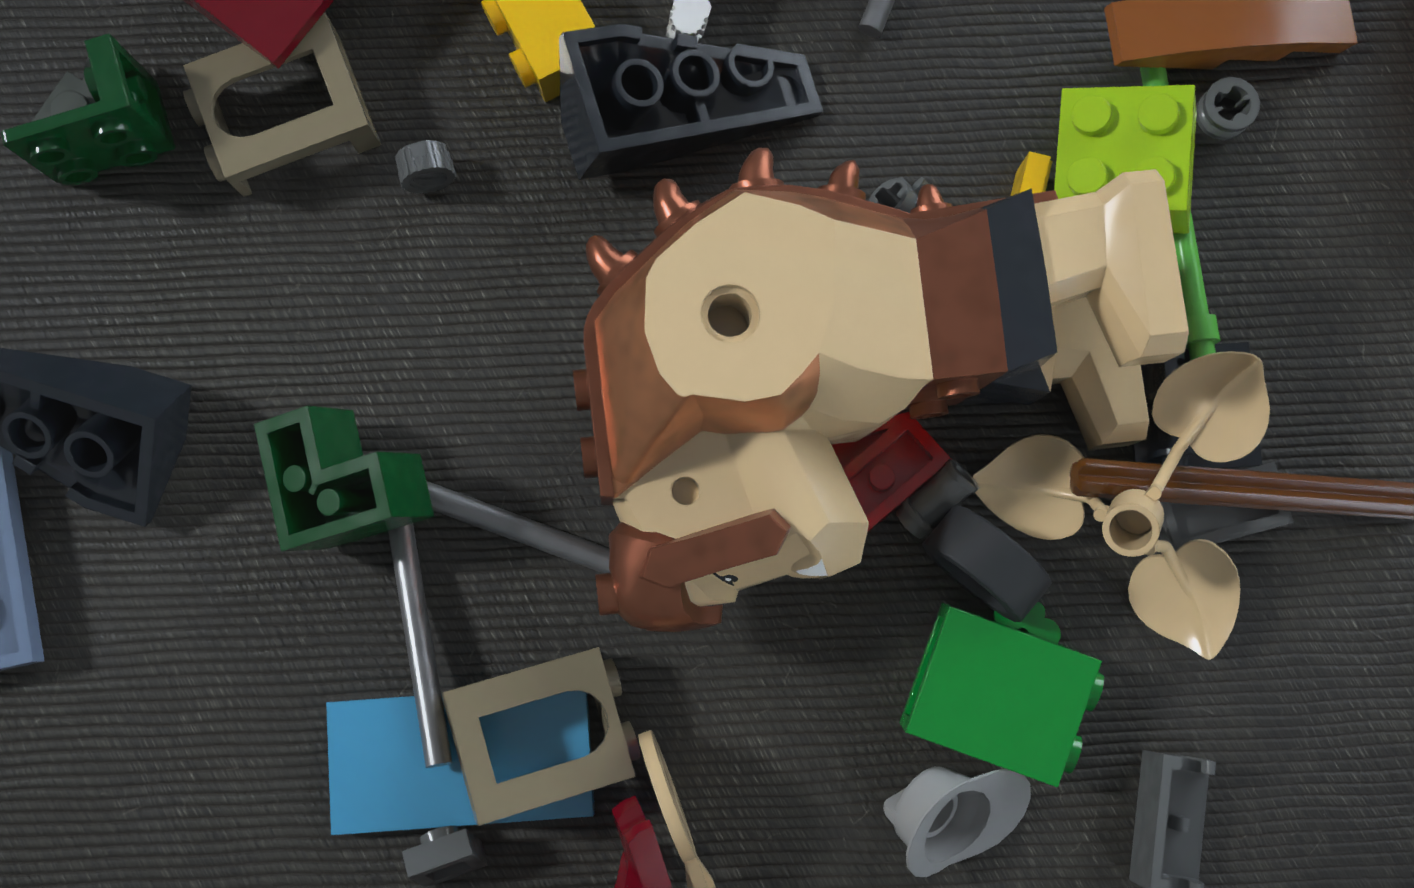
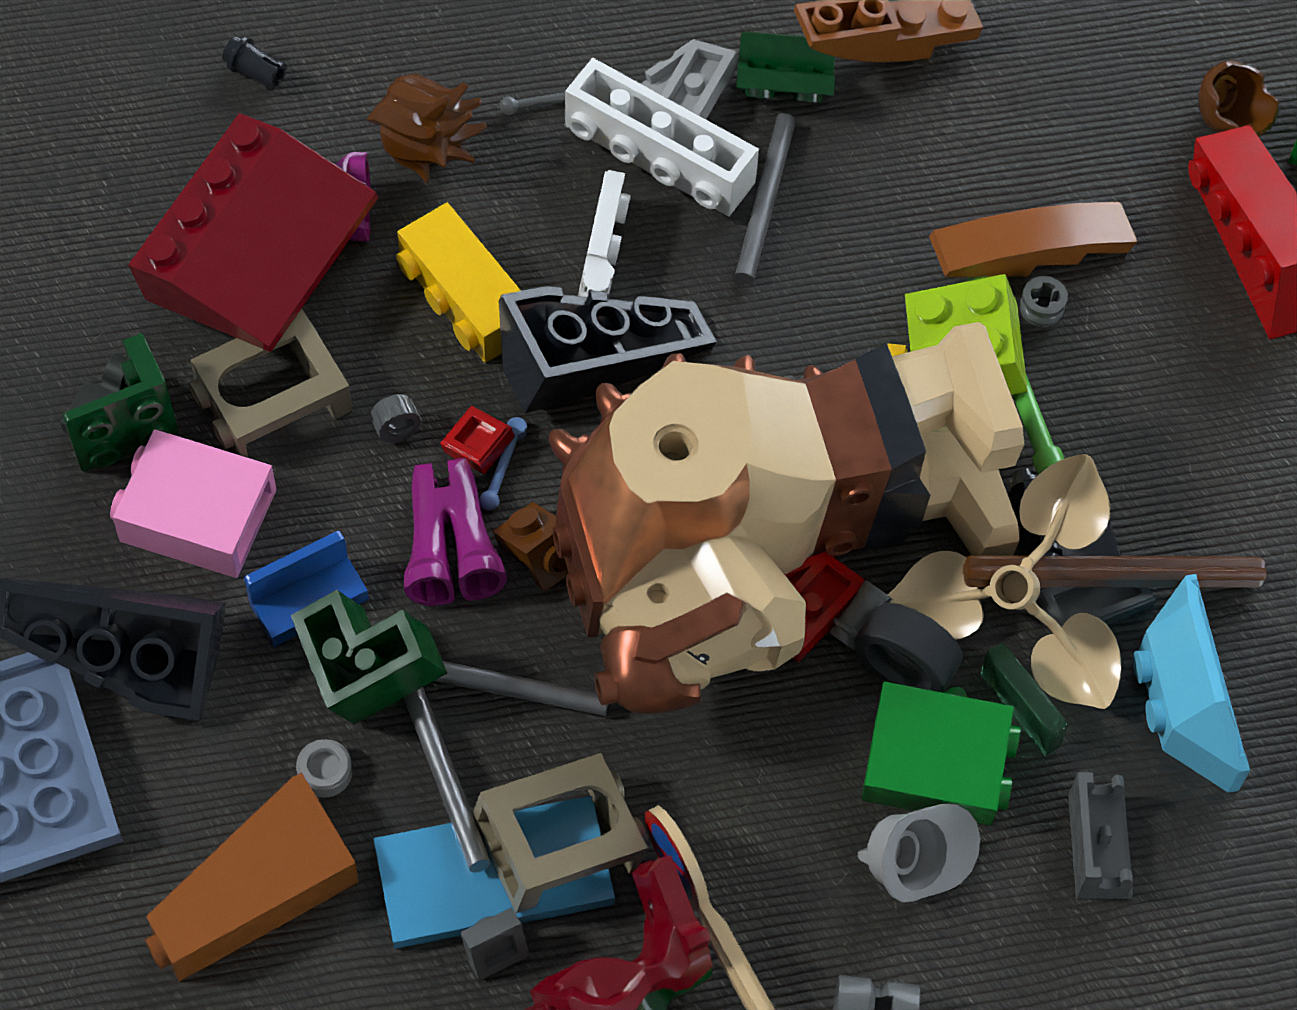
camera: 10 degrees left, 20 degrees down
(172, 247) = (193, 503): none -> bright pink brick
(190, 733) = (253, 882): none -> dark orange slope
(284, 601) = (325, 767): none -> light grey tile
(290, 372) = (299, 581): none -> blue panel
(437, 367) = (428, 571): none -> magenta piece
(519, 206) = (478, 439): none -> red tile
(559, 345) = (530, 539): none -> reddish brown bracket
(569, 196) = (489, 499): none -> medium blue hinge
(1114, 635) = (1031, 705): none -> clear green tile
(1316, 644) = (1189, 691): none -> medium azure wedge

